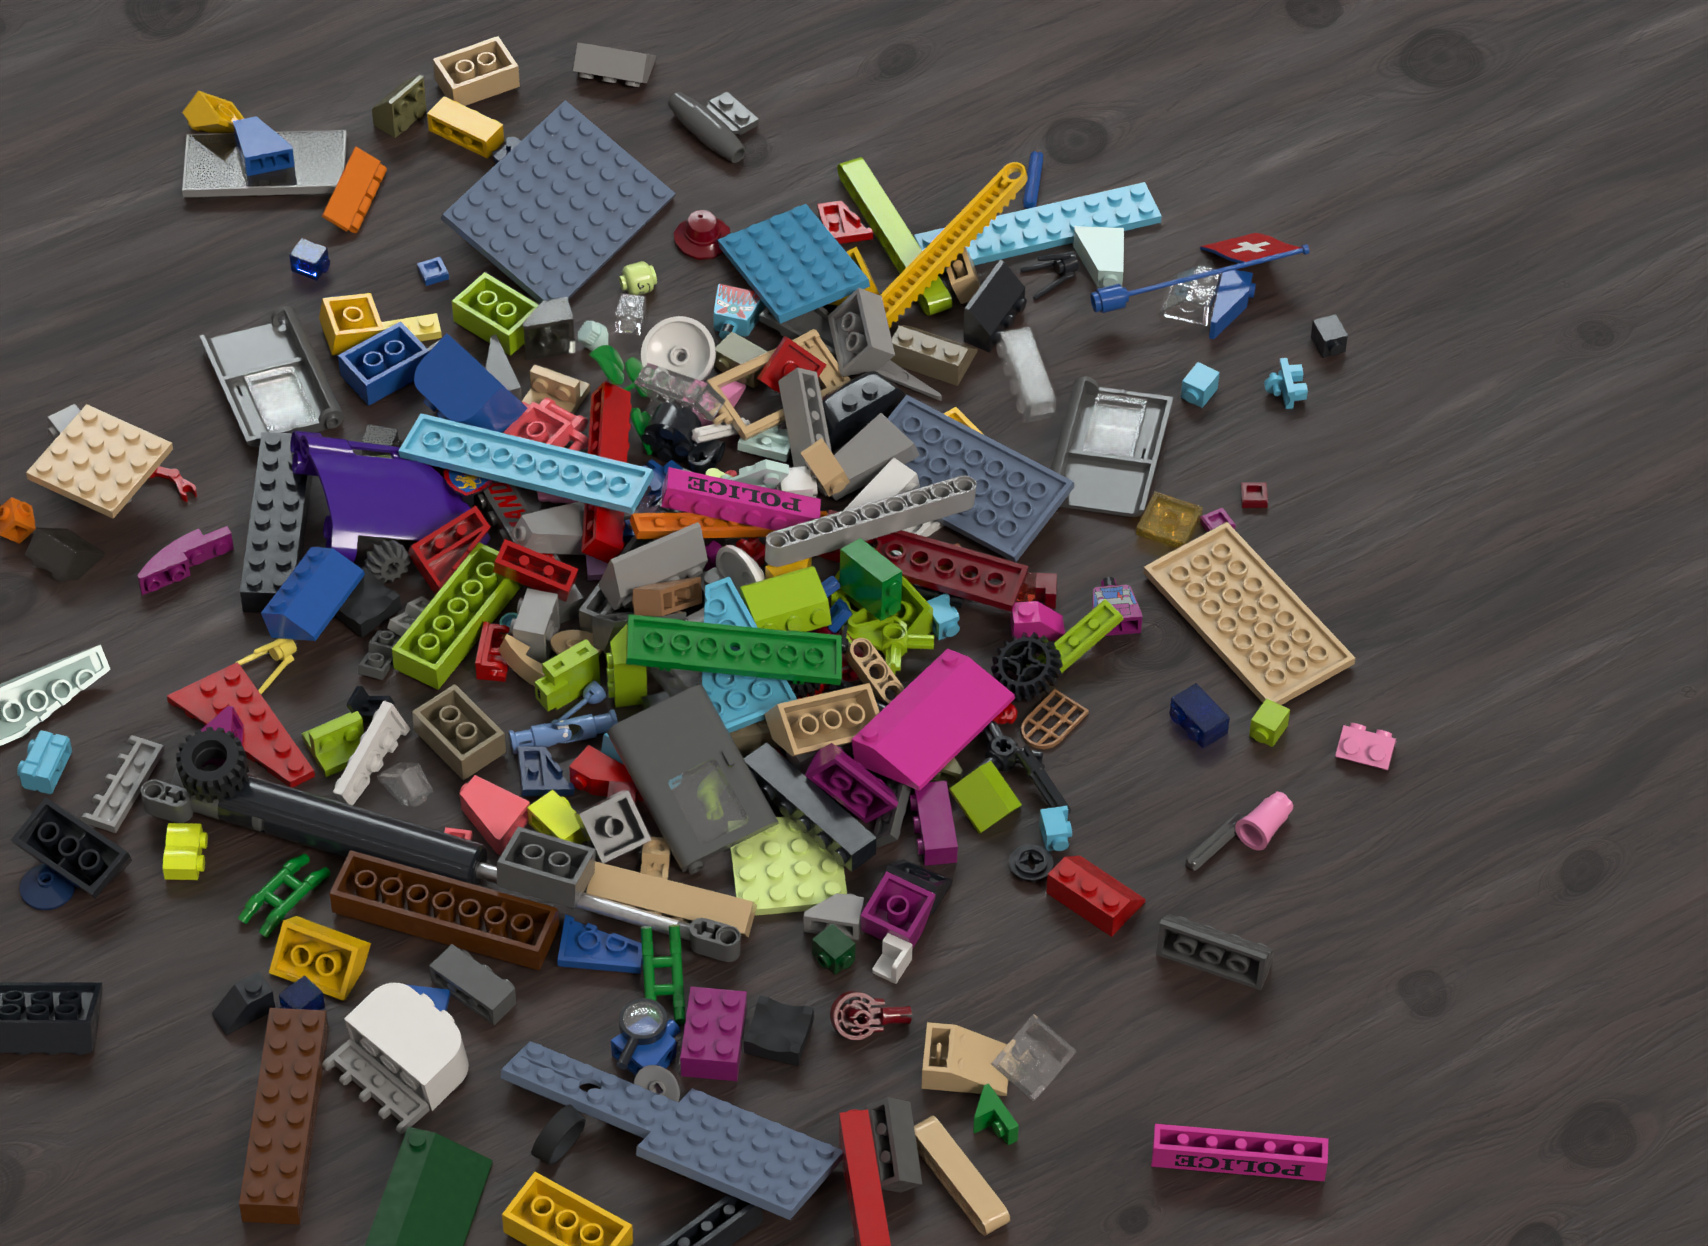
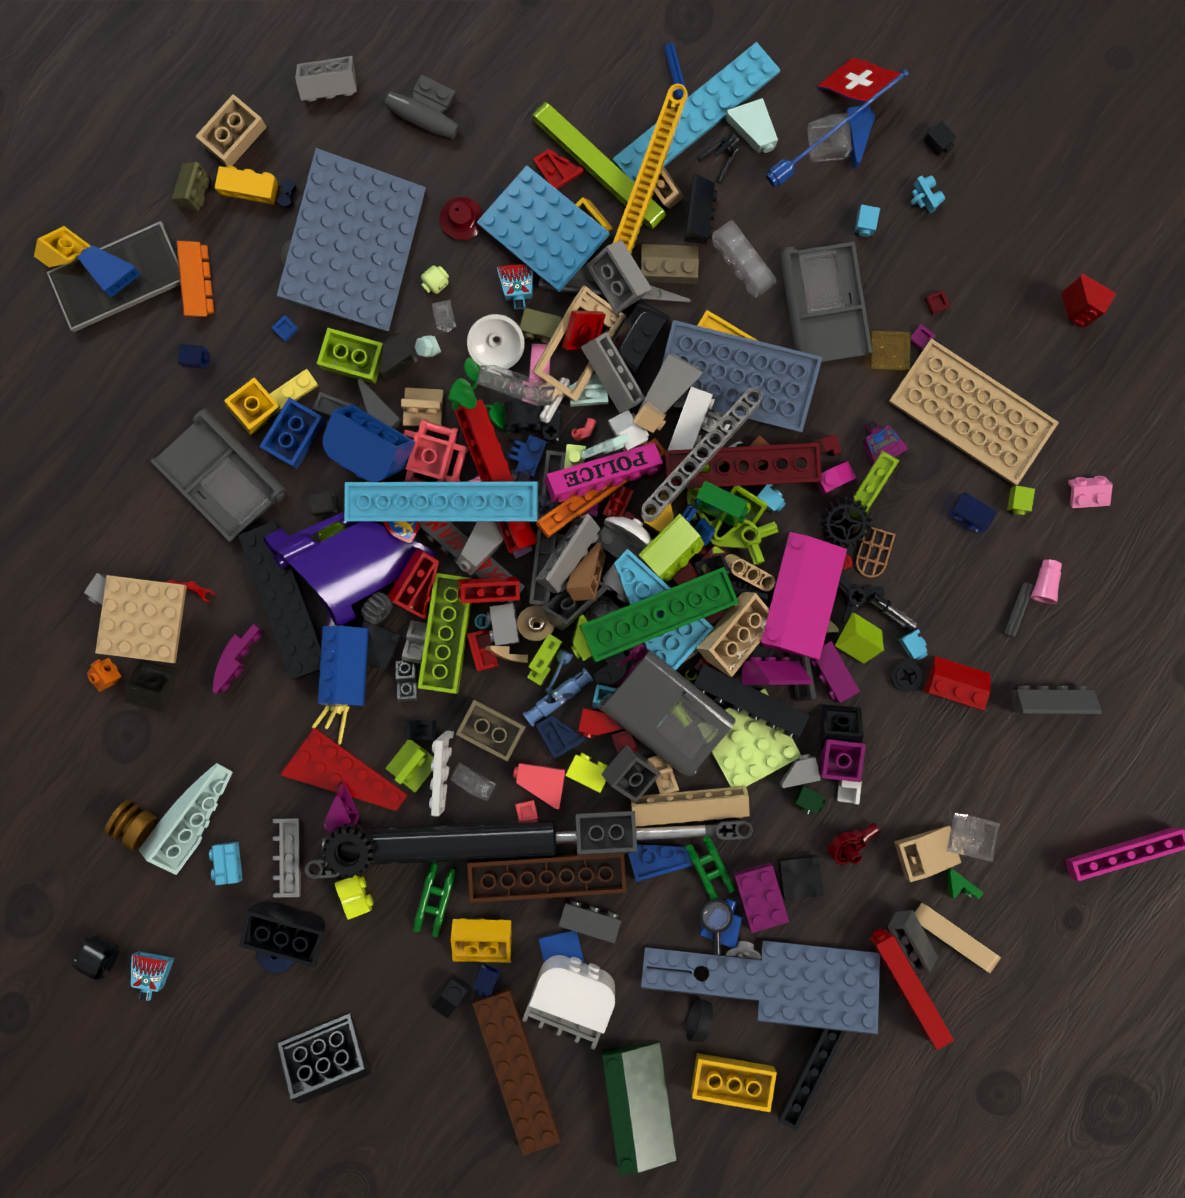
camera: 20 degrees left, 35 degrees up
(1441, 536) = (1086, 300): none -> red slope

